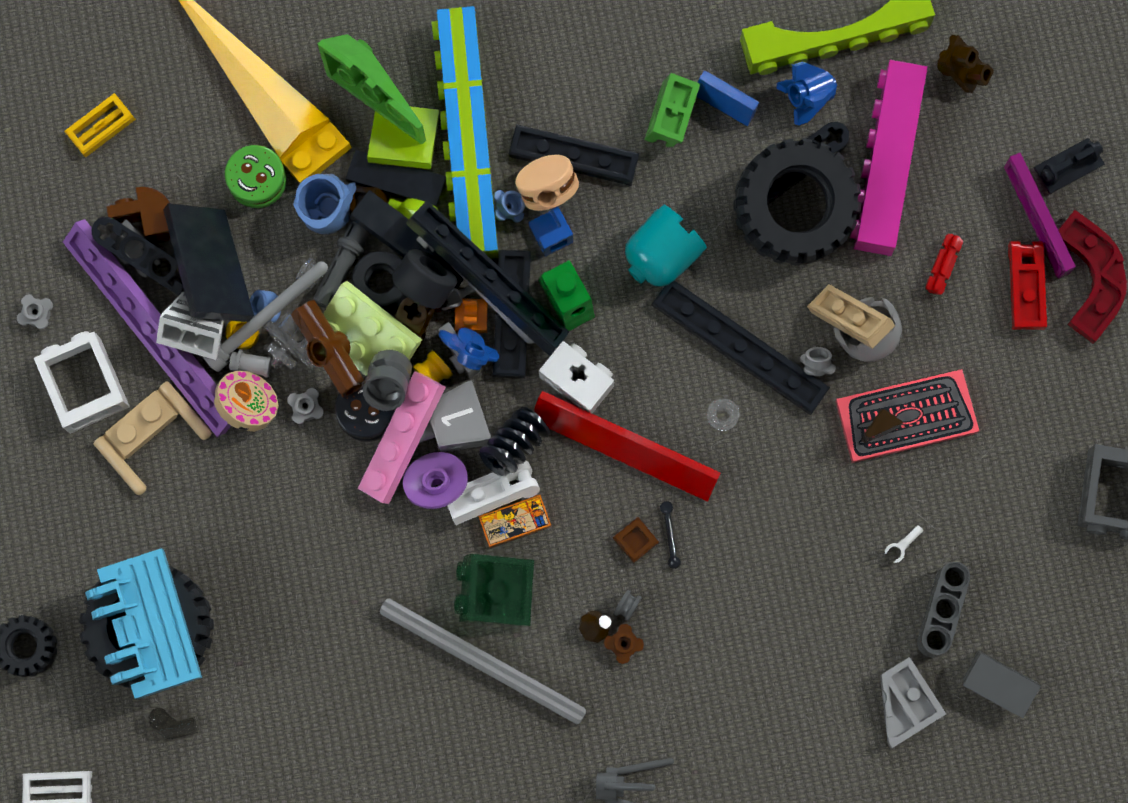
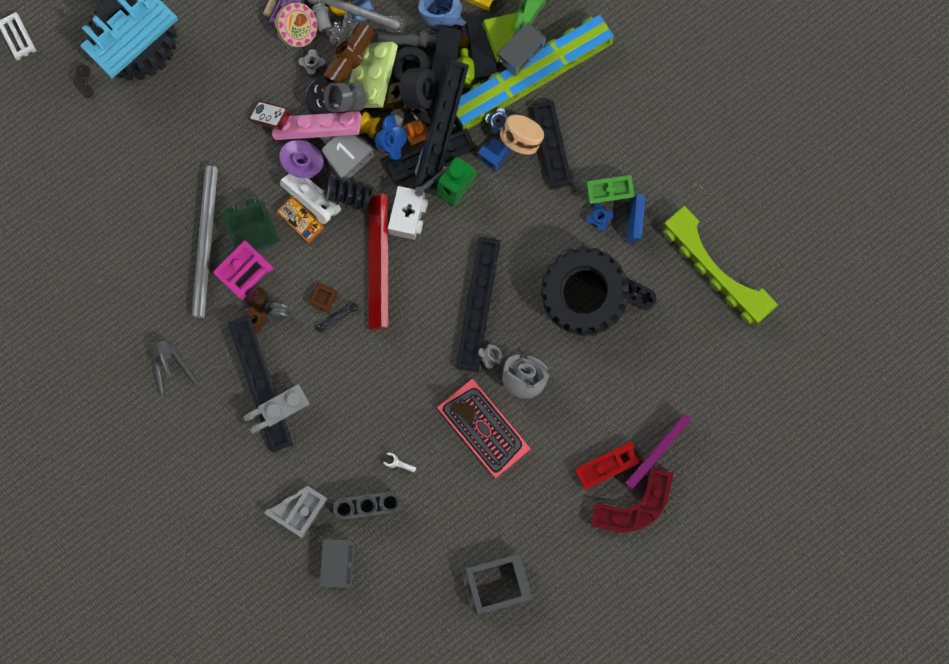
camera: 65 degrees right, 0 degrees up
(355, 493) = (270, 115): none -> tile
(438, 125) = (521, 49): none -> dark grey hinge
(541, 630) = (237, 264): none -> dark pink plate
(560, 345) = (420, 190): none -> dark grey hinge
(662, 248) = (513, 224): teal cylinder -> none
(699, 150) = (593, 219): none -> blue plate
(715, 673) = (258, 378): none -> black tile
(723, 404) = (425, 307): clear plate -> none
(762, 664) = (279, 408): none -> light grey hinge
(808, 90) = (667, 267): blue brick -> none
(851, 316) = (526, 360): tan tile -> none
(889, 158) = (648, 339): dark pink brick -> none
(944, 264) = (595, 406): red axle -> none
(964, 65) = (734, 357): dark brown hips -> none
(1070, 165) = (703, 457): black hinge -> none

